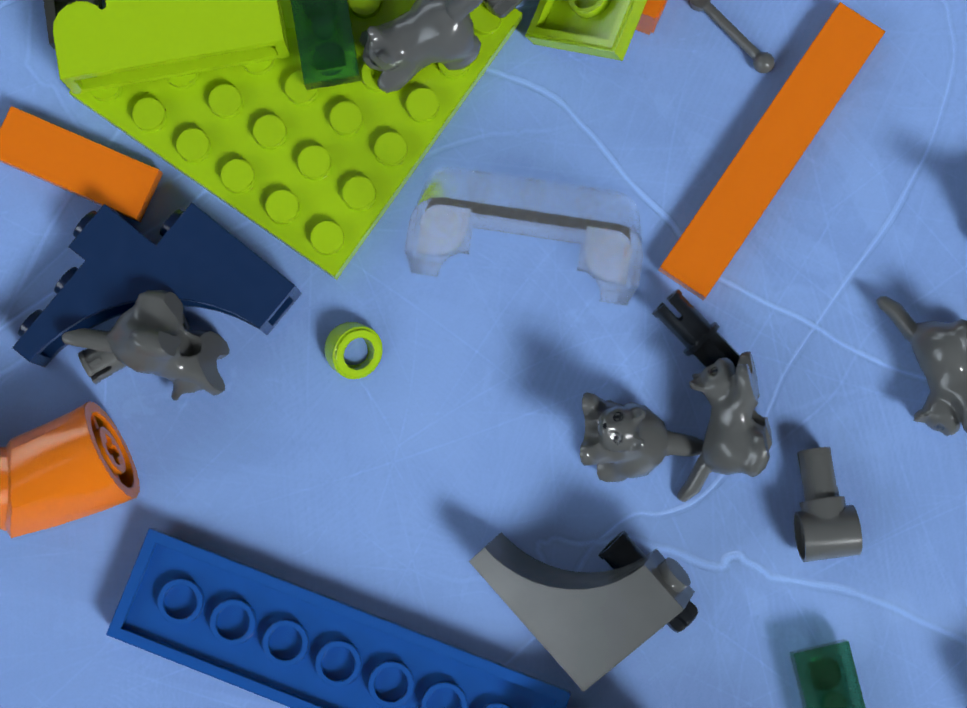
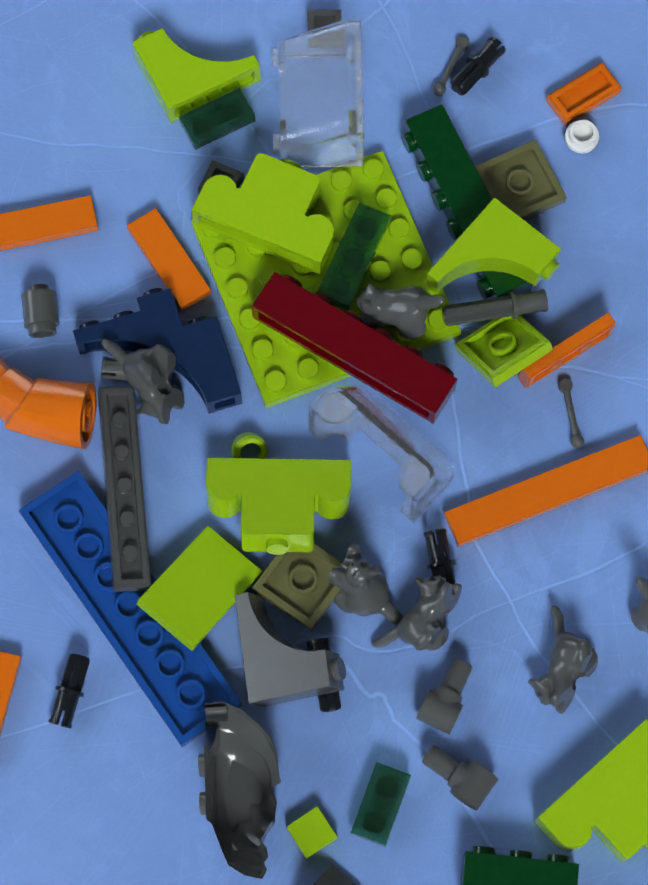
camera: 30 degrees right, 10 degrees down
(227, 514) = (124, 489): none -> dark grey tile
(401, 124) = (354, 346): none -> dark red brick
(414, 580) = (199, 588): none -> lime tile
(438, 393) = (278, 498): none -> lime brick
(537, 479) = (300, 585): none -> olive plate
(922, 598) = (468, 782): none -> dark grey pin

